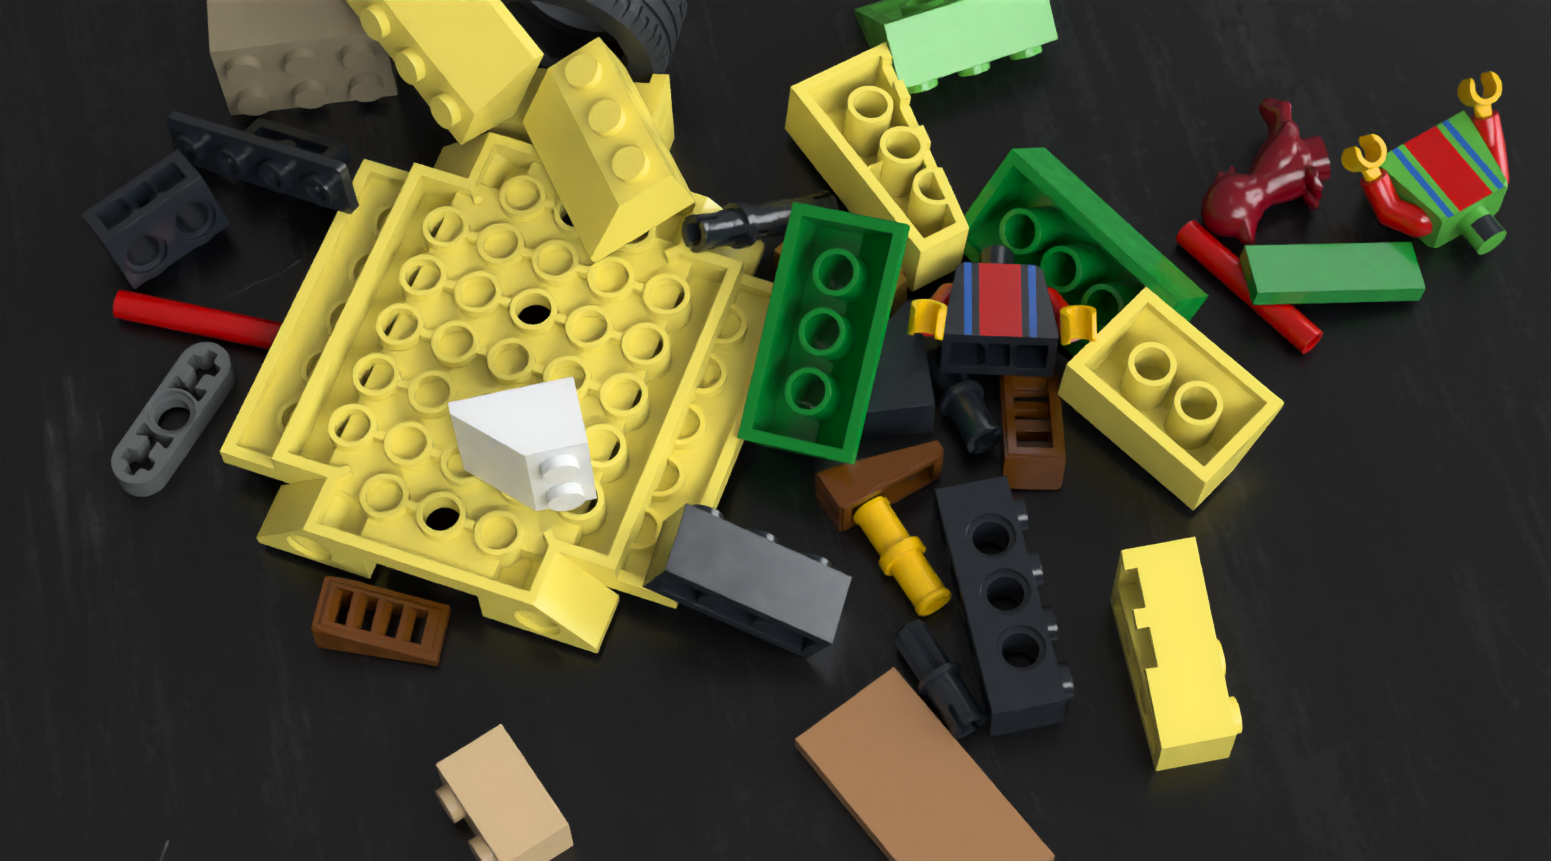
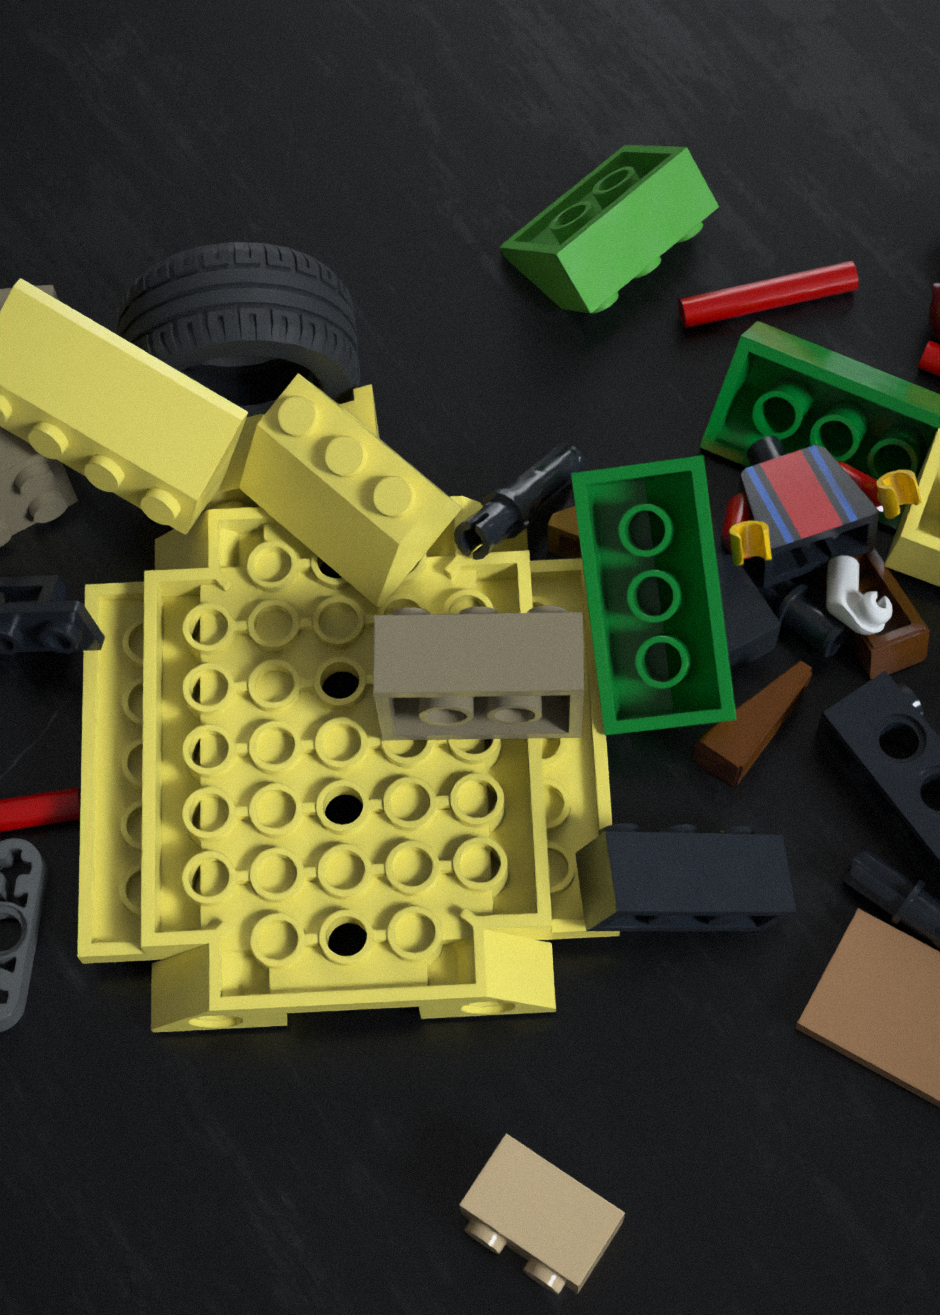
camera: 20 degrees left, 5 degrees up
(362, 597) = (292, 1048): reddish brown slope -> none
(528, 444) = (421, 832): white slope -> none
(639, 338) = (479, 674): none -> dark tan brick
(878, 159) = (599, 390): light yellow wedge -> none
(902, 556) = (812, 790): yellow pin -> none
(1005, 409) = (848, 604): none -> white arm
(1071, 131) = (768, 294): none -> red piece

